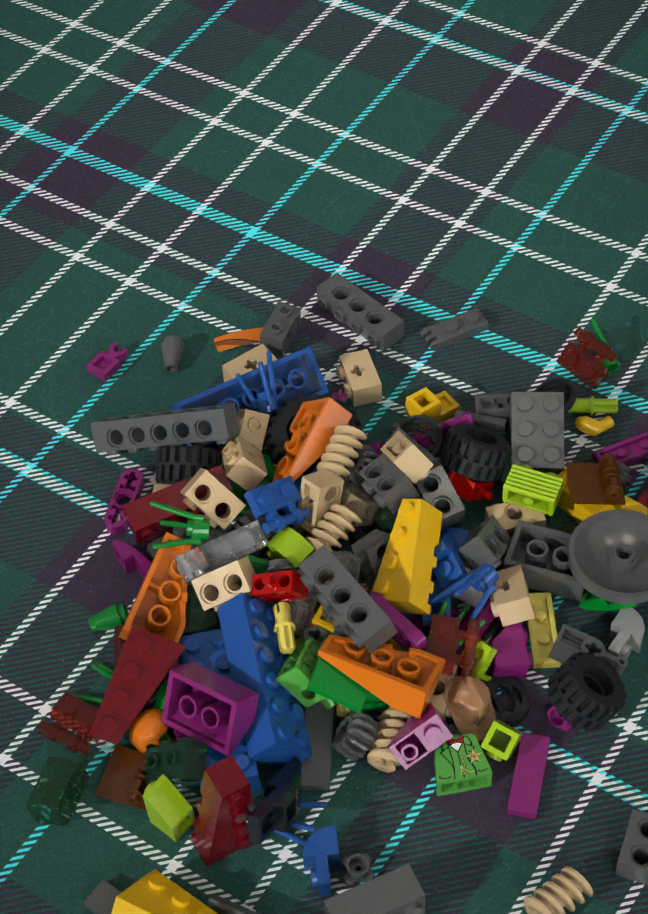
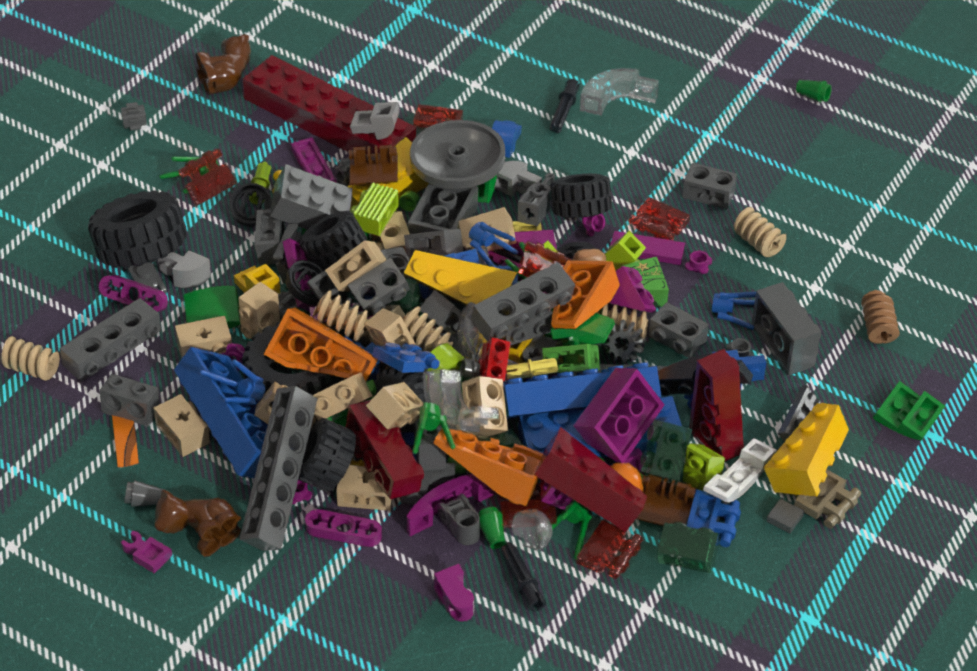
camera: 95 degrees left, 5 degrees down
(30, 588) = (452, 593): none -> magenta leg
(47, 645) = (526, 584): none -> black axle
(99, 650) = (533, 528): none -> clear hair
(105, 813) = (706, 511): none -> blue plate
(120, 588) = (460, 519): none -> dark grey piece
(137, 392) = (210, 518): none -> reddish brown animal
(159, 851) = (742, 473): none -> white slope
(333, 257) = (29, 359): none -> tan piece
(384, 407) = (258, 309): none -> tan brick
(390, 801) = (678, 330): none -> dark grey brick
(403, 380) = (213, 303): none -> green slope
(420, 321) = (123, 296): none -> magenta beam
(431, 854) = (725, 303): none -> blue plant
(457, 355) = (186, 270): none -> light grey brick
(488, 304) = (137, 229): none -> black tyre
(506, 822) = (699, 262): none -> magenta plate
(586, 795) = (659, 219): none -> clear red plate

